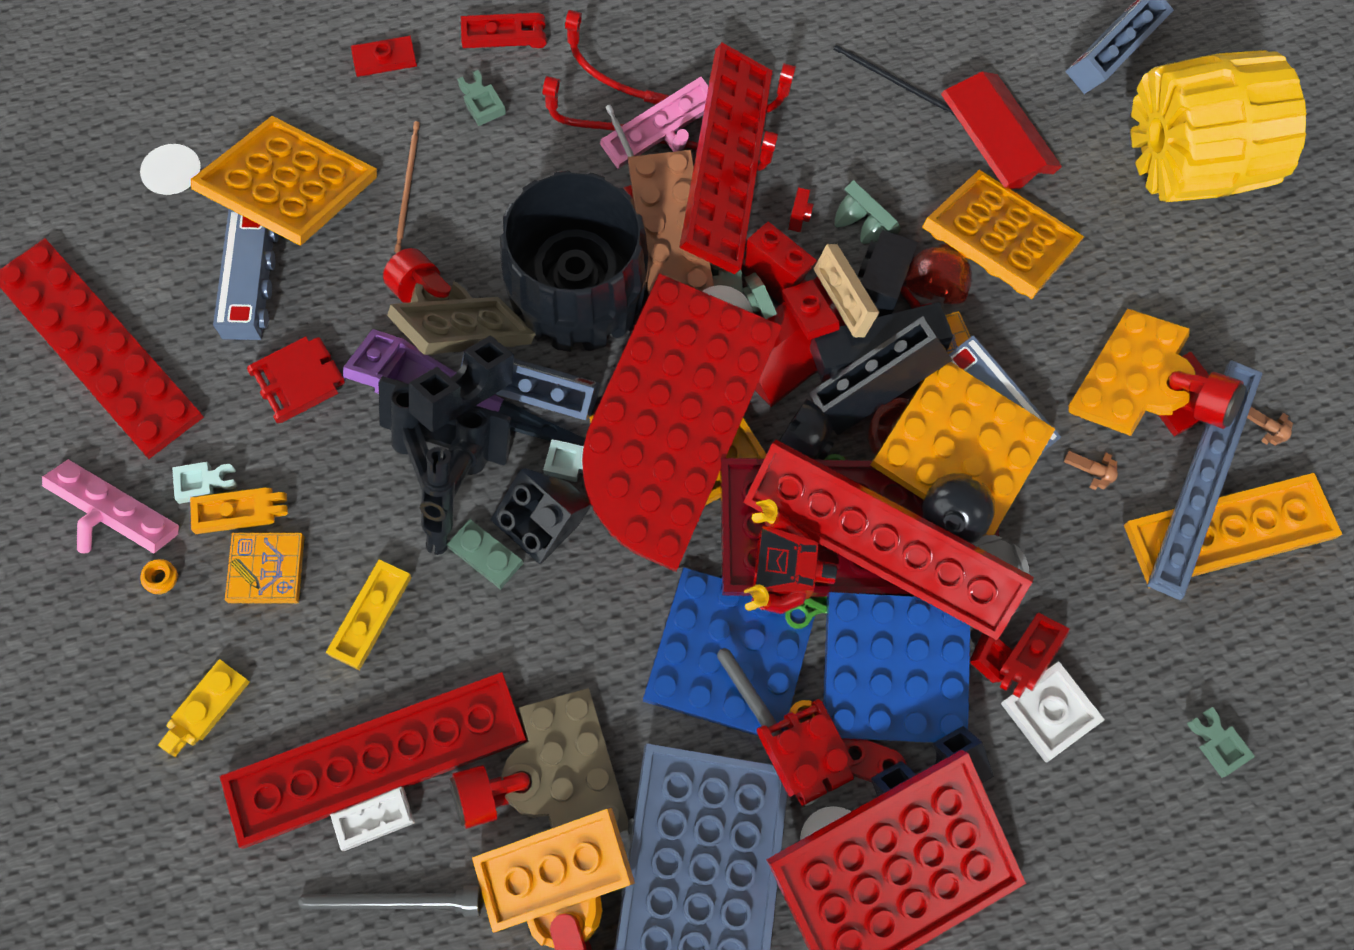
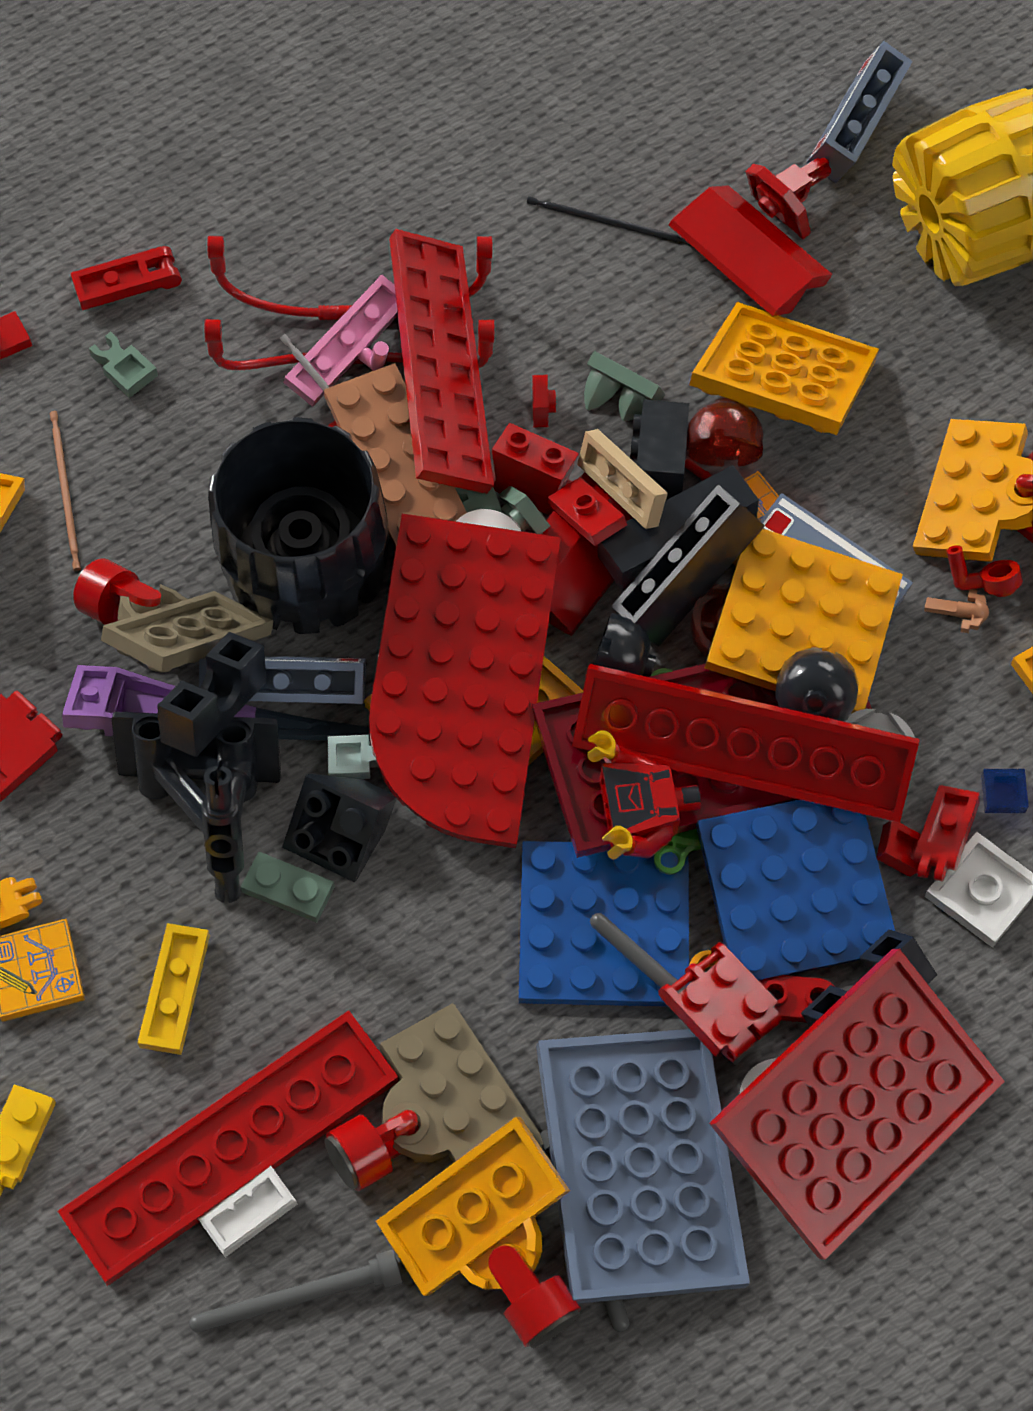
camera: 10 degrees left, 5 degrees down
(1041, 90) = (785, 192): none -> red piece
(1091, 631) = (1004, 791): none -> clear blue plate
(1131, 450) = (996, 578): none -> red plate

